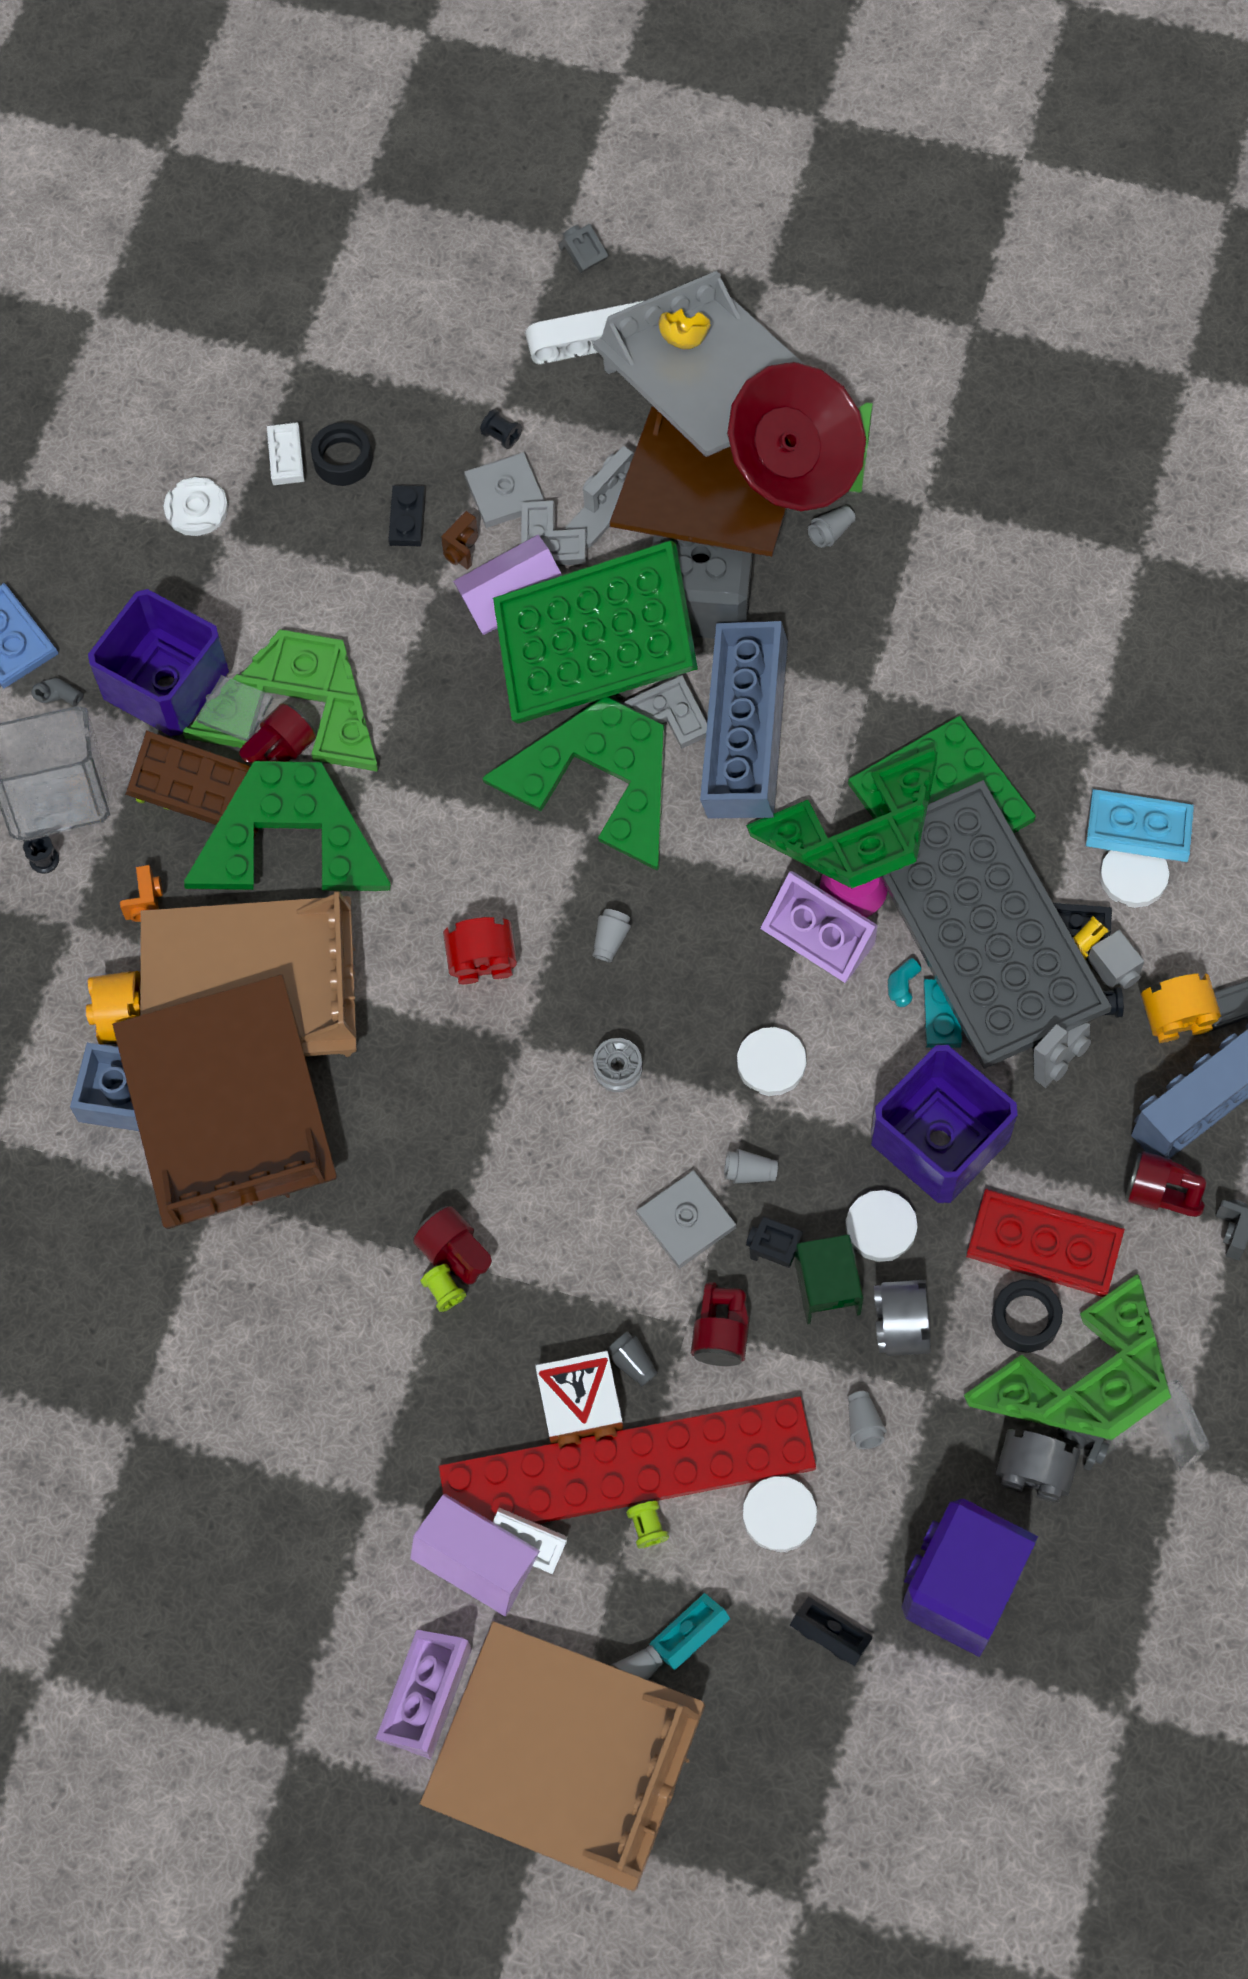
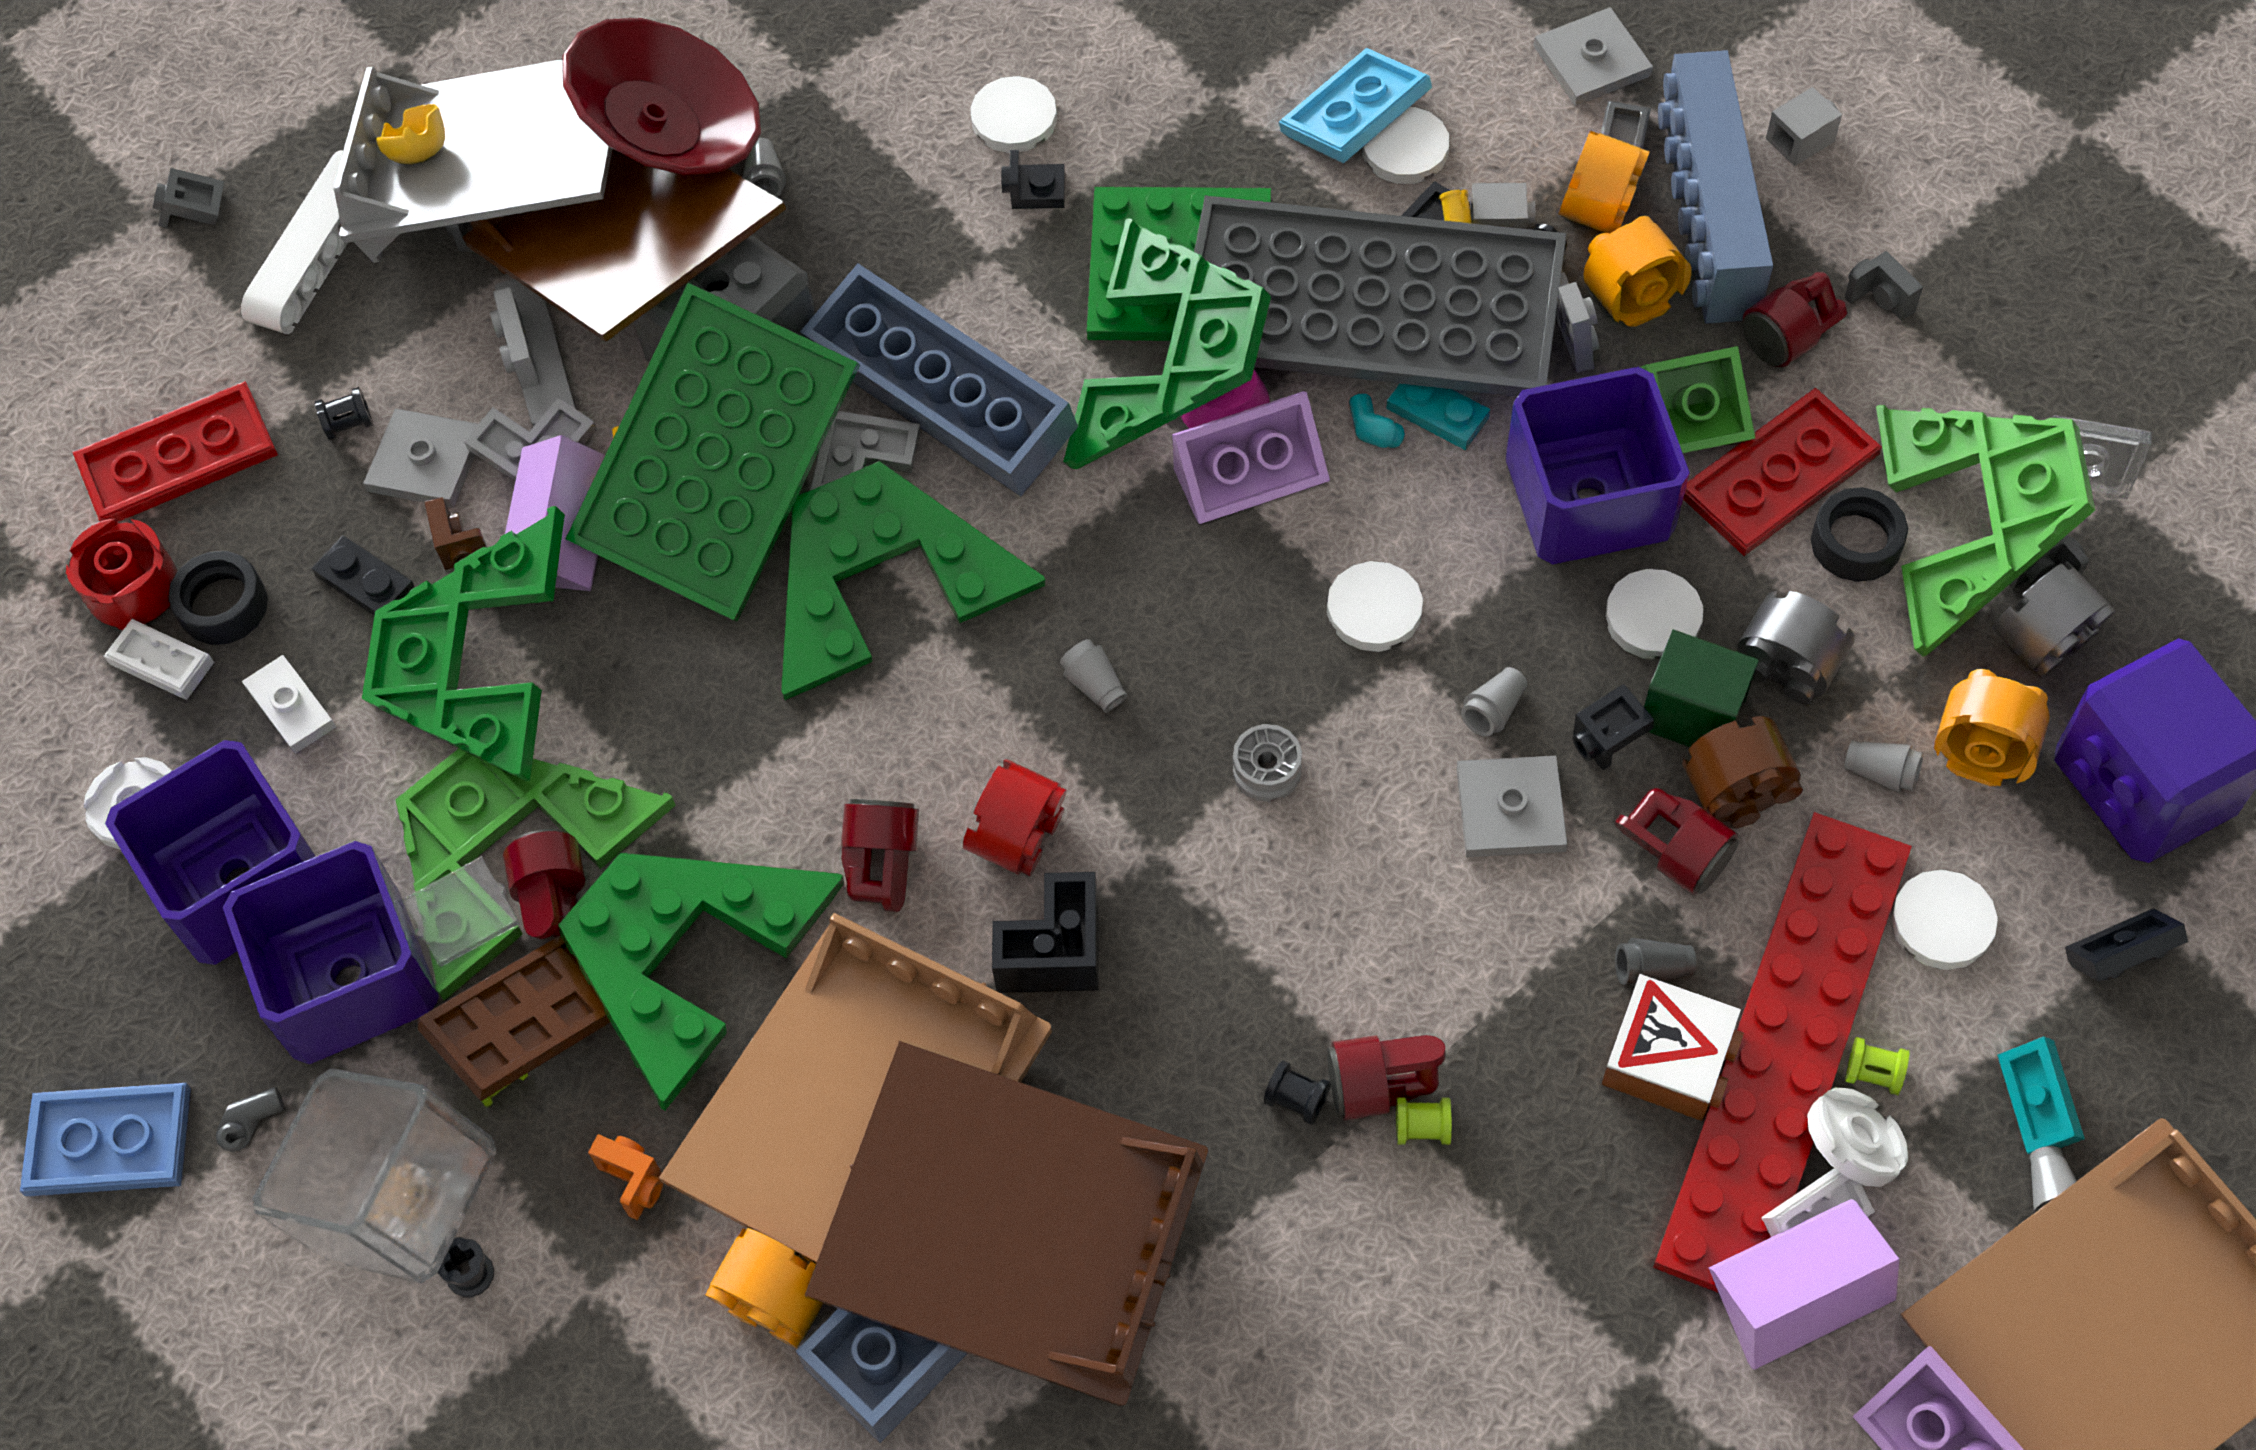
camera: 55 degrees left, 5 degrees down
(180, 546) = (196, 830): none -> dark purple plate
(304, 536) = (289, 704): none -> white plate
(318, 395) = (121, 572): none -> red brick
(378, 575) = (421, 644): none -> green wing
(415, 1207) = (1297, 1092): none -> black bush
(418, 366) = (175, 453): none -> red tile
(423, 1026) = (1054, 951): none -> black brick
(428, 889) = (883, 827): none -> dark red piece
(588, 1536) = (1857, 1137): none -> white tile
(789, 1335) = (1742, 771): none -> reddish brown brick
(926, 1469) = (1993, 728): none -> light orange brick
(936, 679) = (1033, 185): none -> black bracket
(982, 635) = (1013, 114): none -> white tile
(1052, 1160) = (1705, 398): none -> bright green slope
(1124, 1067) = (1636, 271): none -> light orange brick

